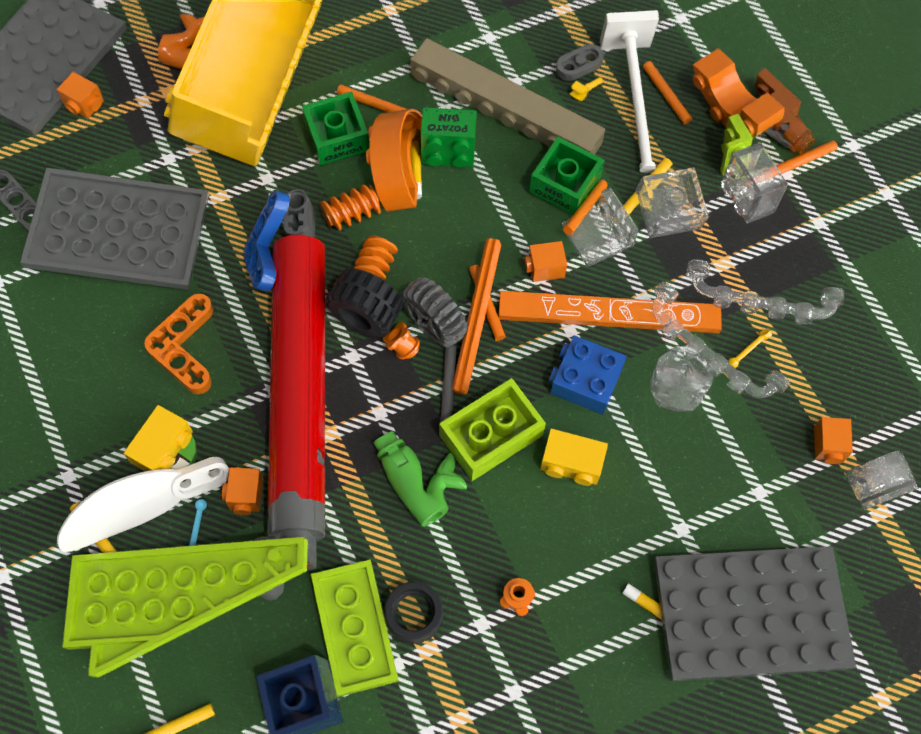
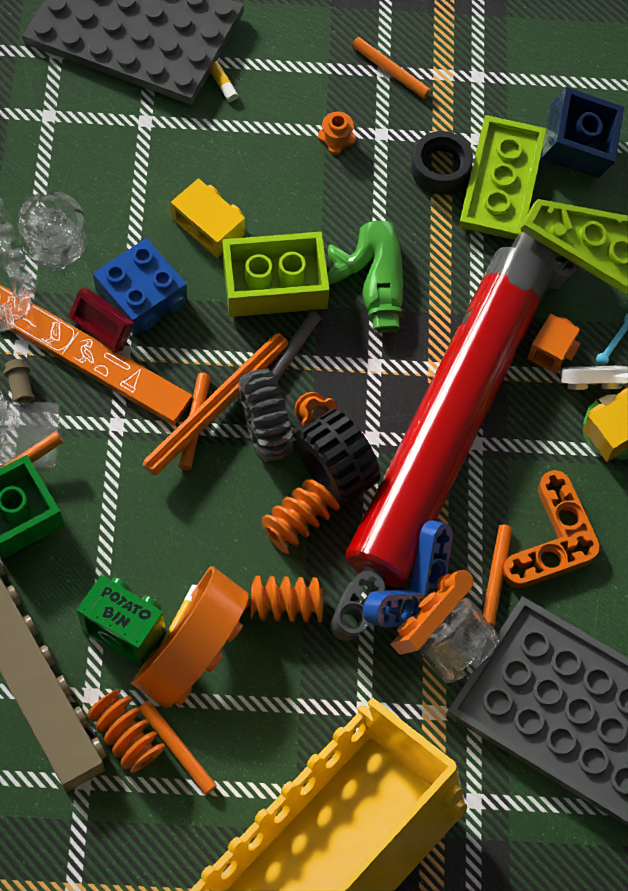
camera: 155 degrees left, 0 degrees up
(213, 295) = (497, 574): none -> orange bar
(219, 223) = (459, 641): none -> clear brick
(242, 227) = (434, 610): none -> orange plate
(336, 128) = (250, 712): green brick -> none
(406, 89) = (124, 731): none -> orange piece
(509, 694) = (391, 68): none -> orange bar
(546, 261) = (103, 425): orange brick -> none
(599, 332) = (101, 319): none -> dark red tile
(625, 266) = (17, 374): none -> dark tan pin

